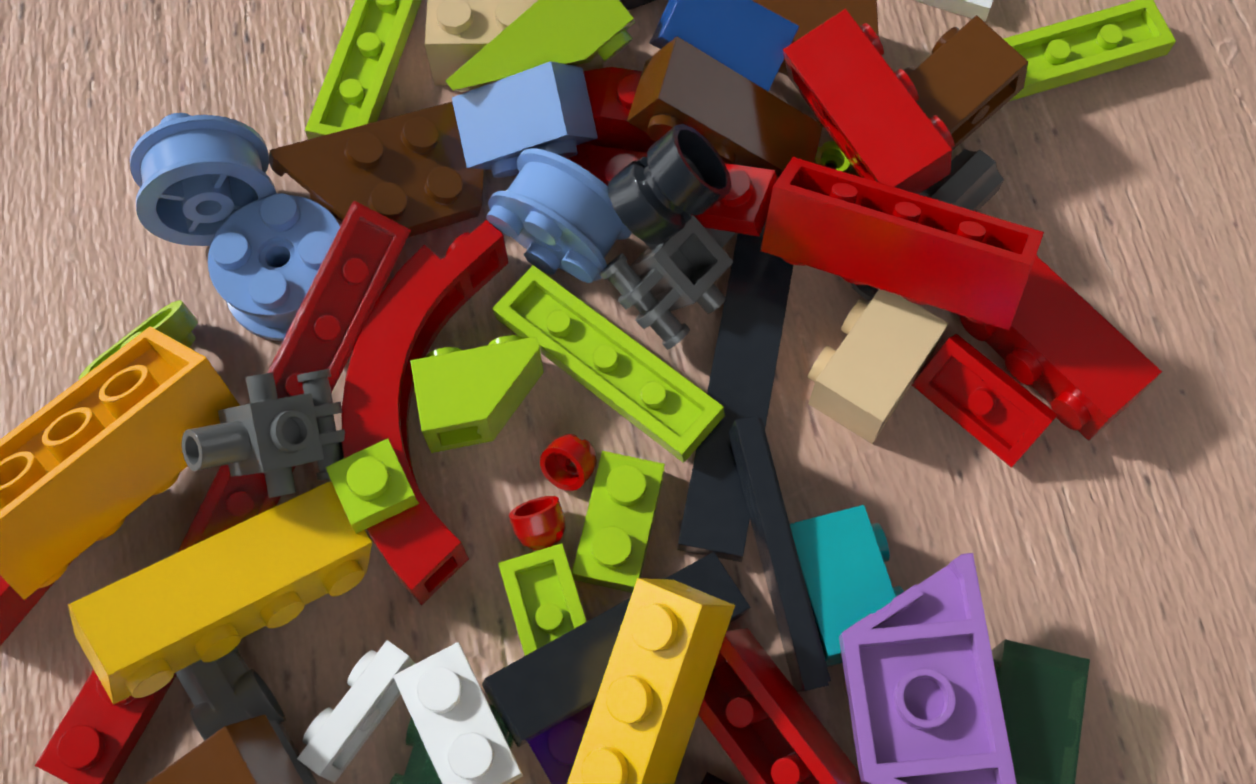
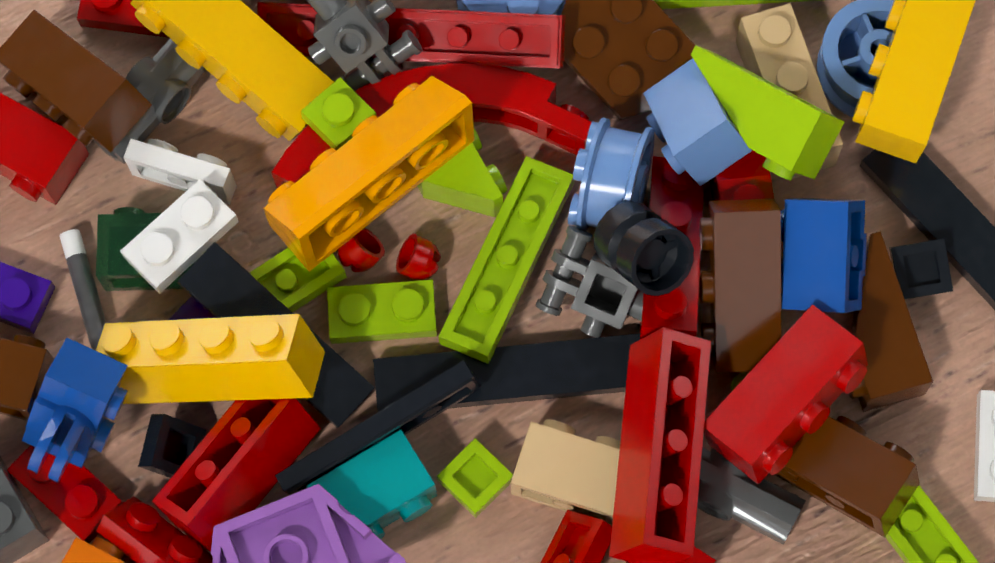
camera: 75 degrees right, 5 degrees up
(463, 458) = (371, 170): none -> light orange slope
(853, 468) = (475, 477): none -> lime plate

